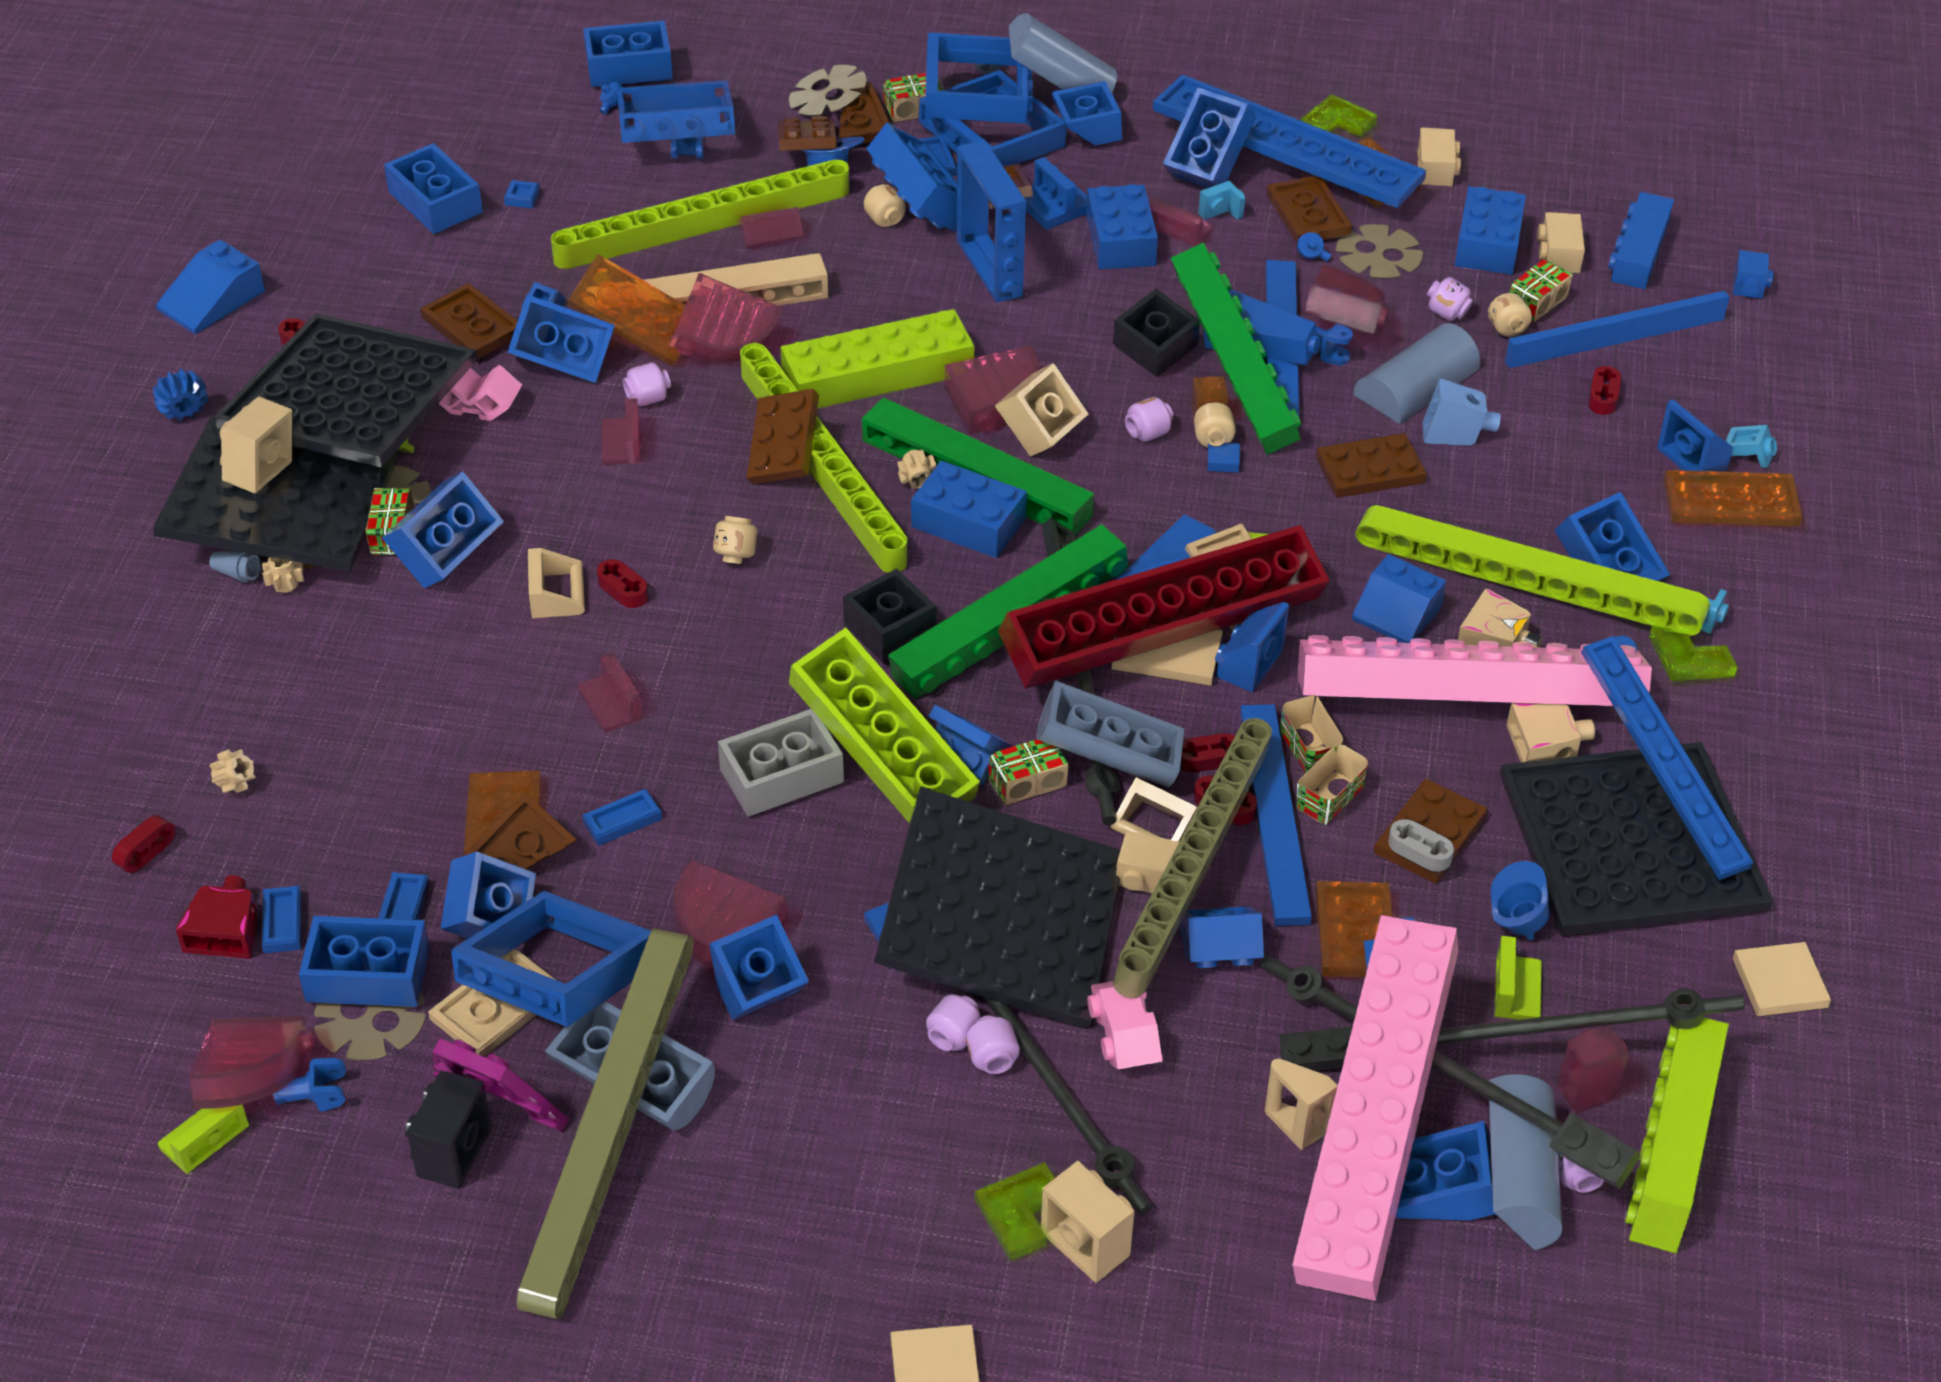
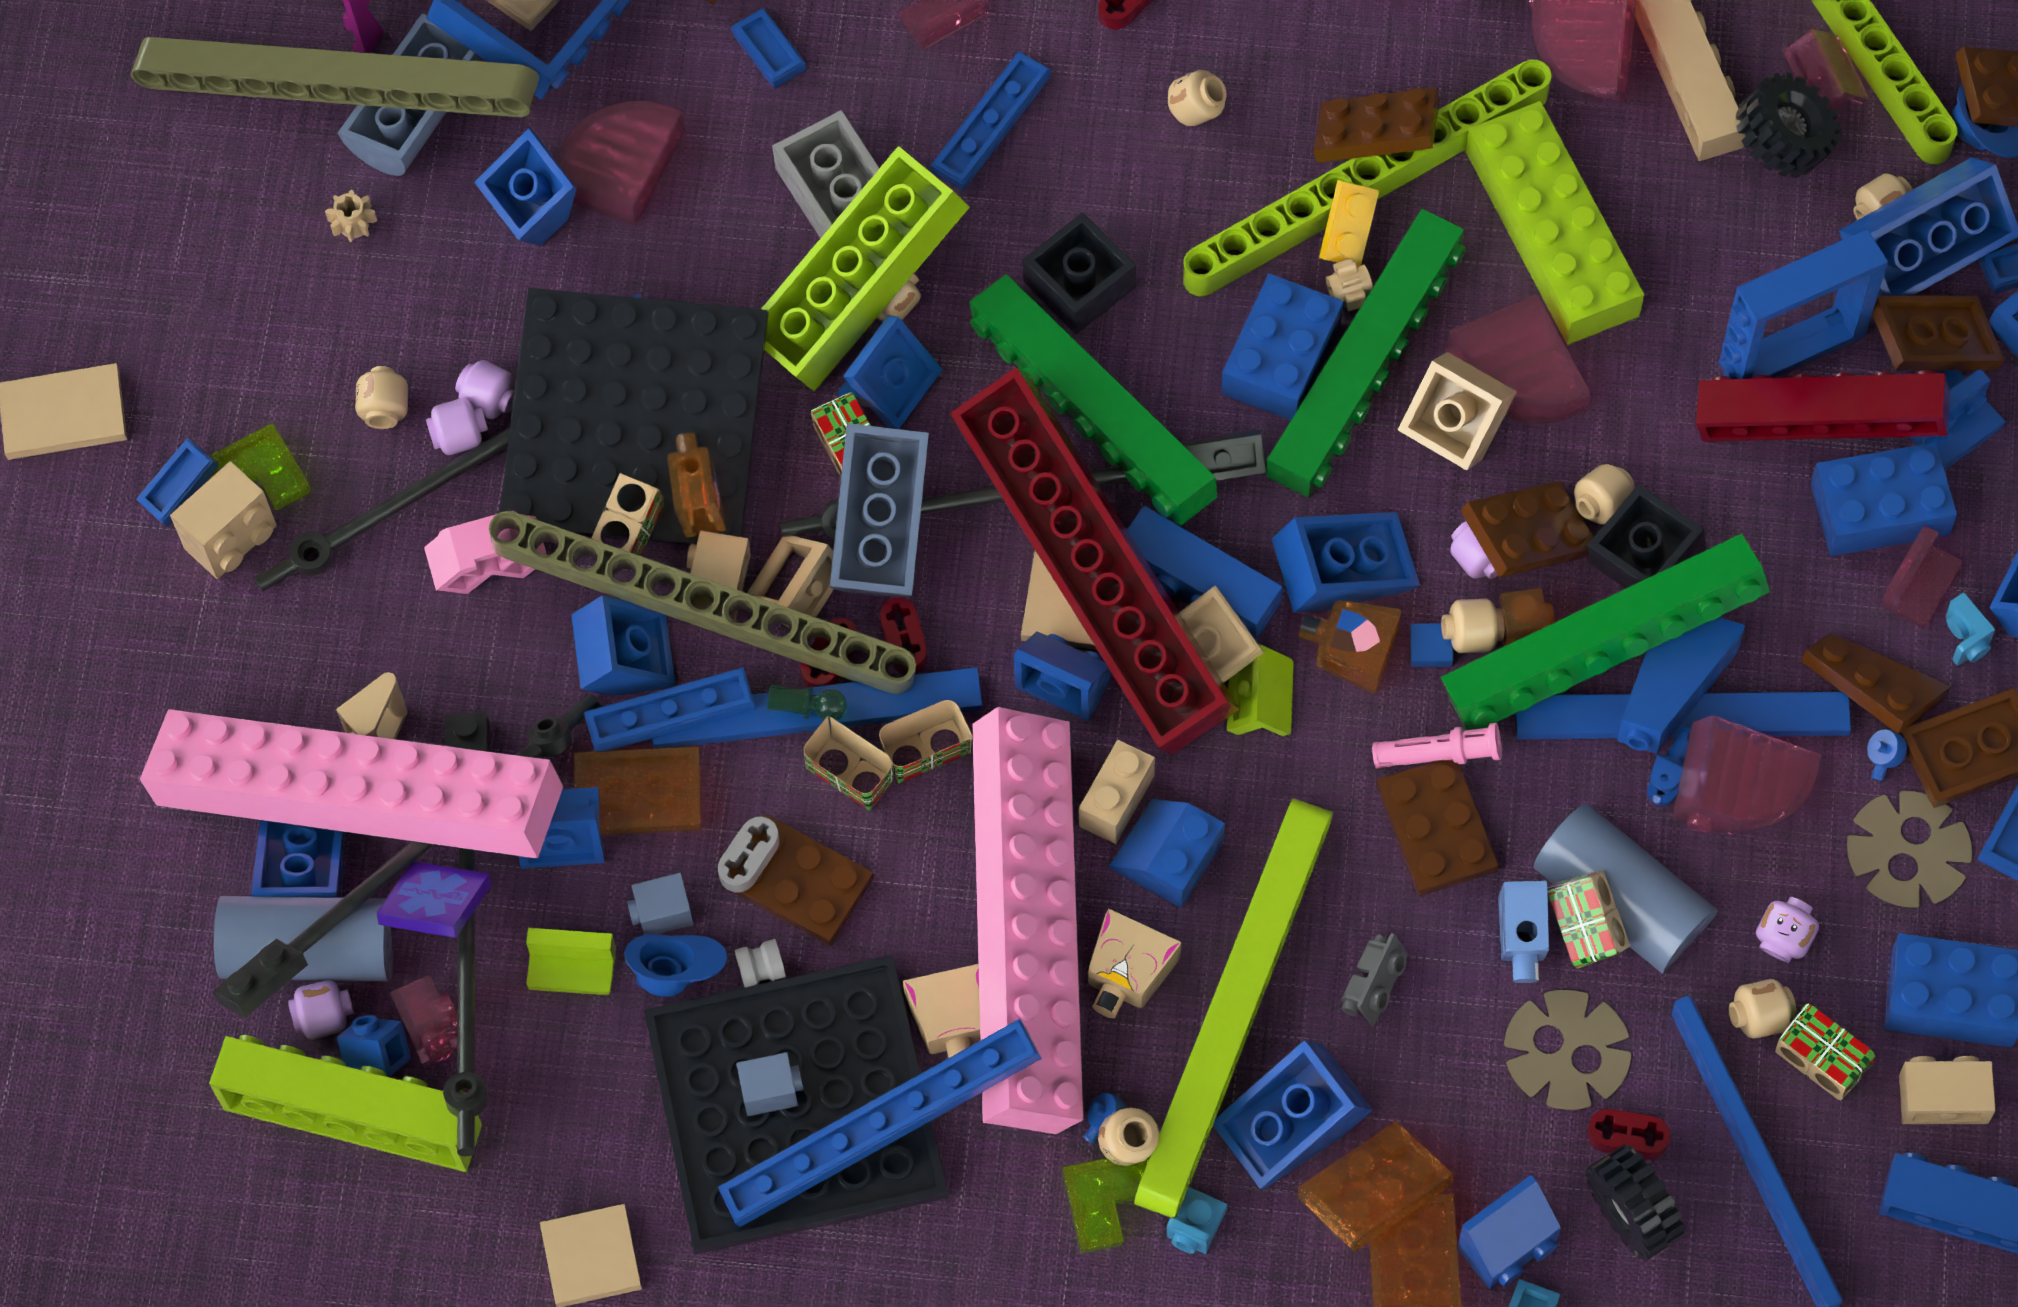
camera: 90 degrees right, 20 degrees up
(724, 675) = (990, 120): none -> blue tile
(751, 1126) = (348, 225): none -> tan gear
(820, 233) = (1788, 125): none -> black bush
(858, 454) = (1349, 223): none -> yellow plate
(954, 1104) = (381, 397): none -> tan head
(1032, 1274) = (177, 480): none -> blue tile
(1056, 234) = (1823, 407): none -> dark red brick
(1088, 846) = (695, 487): none -> clear orange torso
(1089, 908) = (649, 513): none -> tan piece
(1108, 354) = (1602, 492): none -> tan head
(1139, 386) = (1528, 528): none -> reddish brown plate
(1156, 493) = (1343, 559): none -> blue slope
(1226, 489) = (1354, 641): none -> clear orange torso
(1260, 244) = (1875, 682): none -> reddish brown wing
(1278, 803) = (802, 701): none -> clear green pin
(1283, 900) = (669, 710): none -> blue tile
(1315, 437) = (1457, 746): none -> bright pink pin
(1348, 616) = (1116, 791): none -> tan brick
(1453, 369) = (1588, 918): none -> piece
(1466, 910) = (660, 905): none -> sand blue brick
(1495, 1036) = (433, 899): none -> dark purple tile
(1511, 504) = (1384, 962): none -> dark grey hinge
(1512, 846) = (760, 963): none -> light grey wheel
(1555, 426) = (1567, 1085): none -> dark tan piece
(1621, 1111) = (374, 1044): none -> blue brick
(1630, 835) = (769, 1083): none -> sand blue brick
(1651, 623) = (1128, 1136): none -> tan head
(1669, 370) = (1635, 1202): none -> black bush
(1671, 505) = (1375, 1186): none -> clear orange plate

